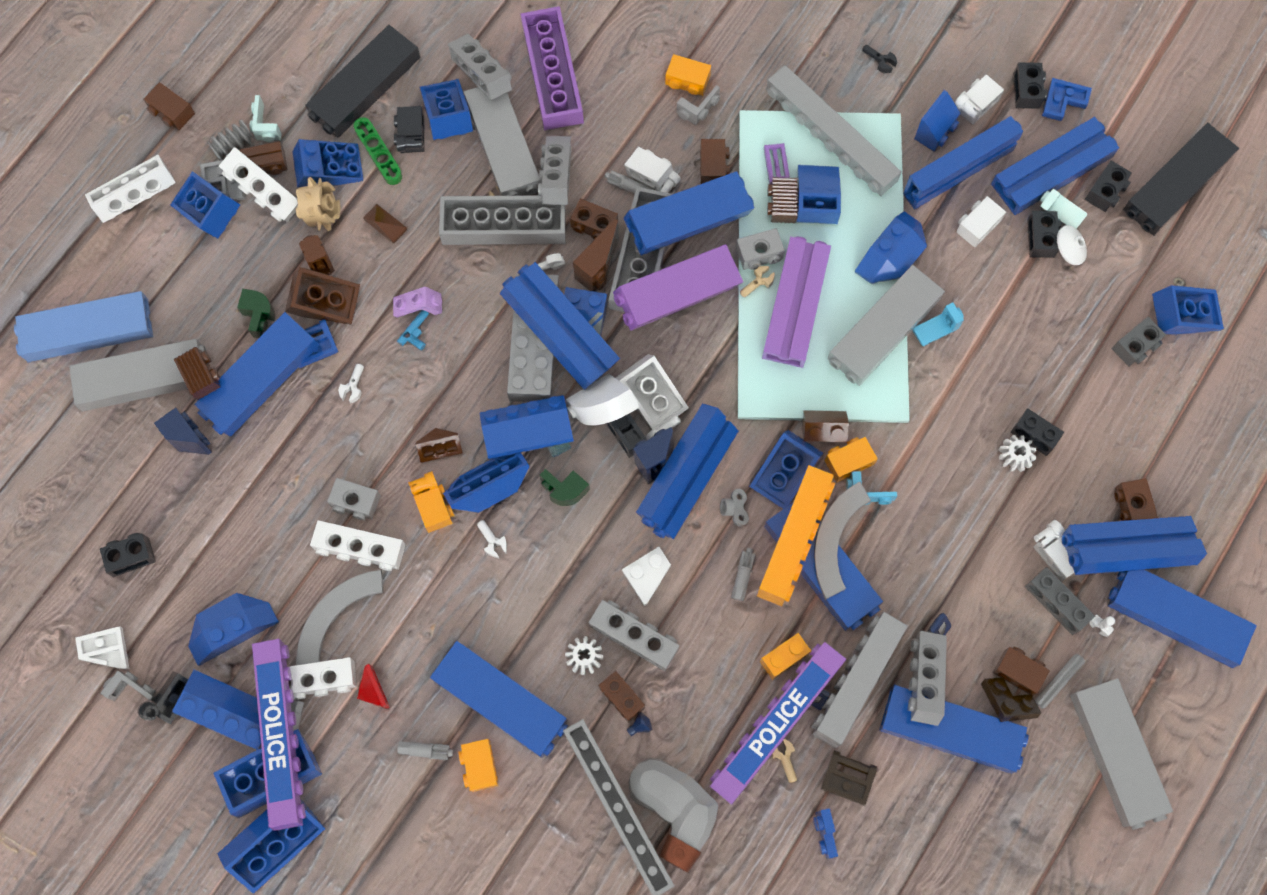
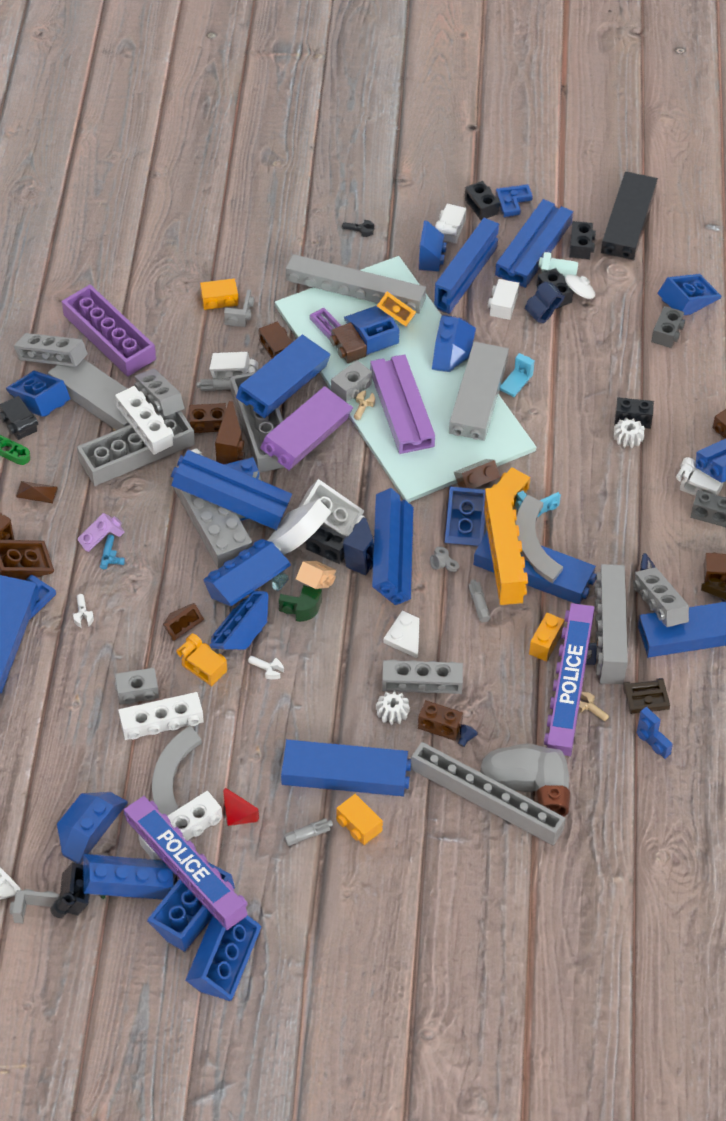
camera: 30 degrees left, 20 degrees down
(517, 230) = (144, 420): none -> white brick
(592, 465) = (316, 574): none -> light nougat brick
(853, 185) = (396, 309): none -> light orange brick
(1019, 248) = (544, 302): none -> dark blue brick

